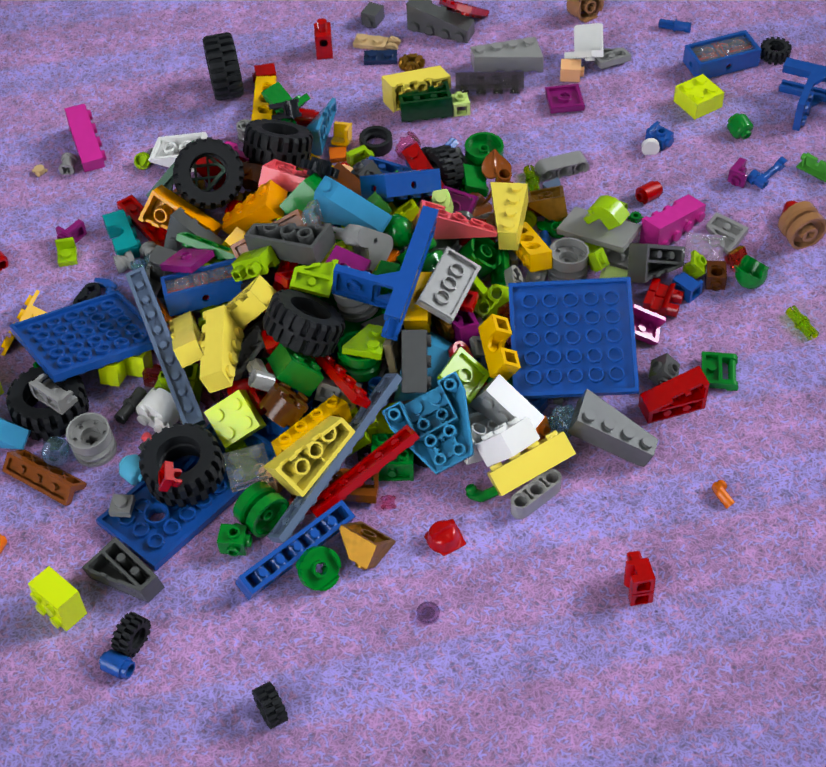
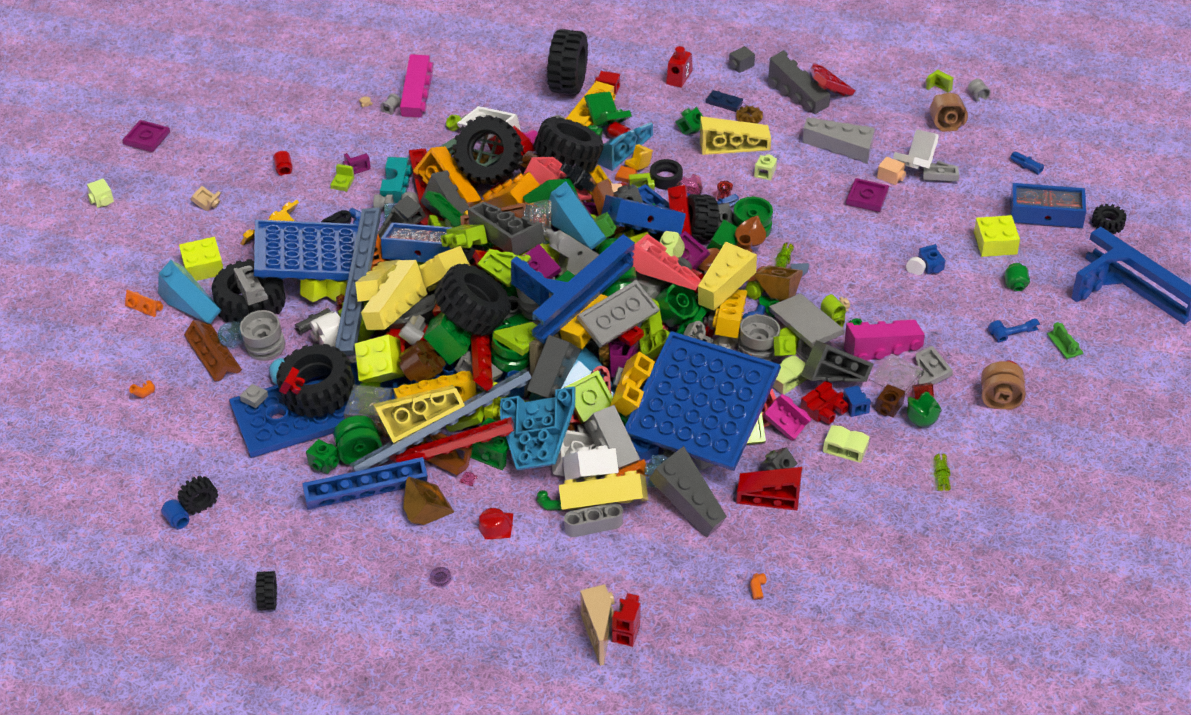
camera: 25 degrees right, 5 degrees down
(57, 599) = (158, 446): neon yellow brick -> none
(123, 571) = (223, 446): dark grey wedge -> none
(187, 260) = (422, 216): magenta plate -> none
(290, 109) = (600, 119): black piece -> none
(307, 564) = (379, 494): green plate -> none
(365, 84) = (689, 121): none -> green brick
(376, 42) = (729, 86): tan hinge -> none
(426, 104) = (732, 156): dark green wedge -> none
(439, 139) = (722, 192): none -> clear red bush
(490, 81) = (805, 155): clear smoke brick -> none
(561, 165) = (819, 254): light grey beam -> none
(608, 210) = (817, 305): lime brick -> none
(611, 589) = (597, 618): none -> tan slope
(649, 192) = (884, 306): red brick -> none
(696, 266) = (875, 384): lime bracket -> none
(706, 329) = (846, 443): none -> yellowish green brick
(712, 368) = (827, 479): green plate -> none
(737, 173) = (981, 318): magenta bracket -> none

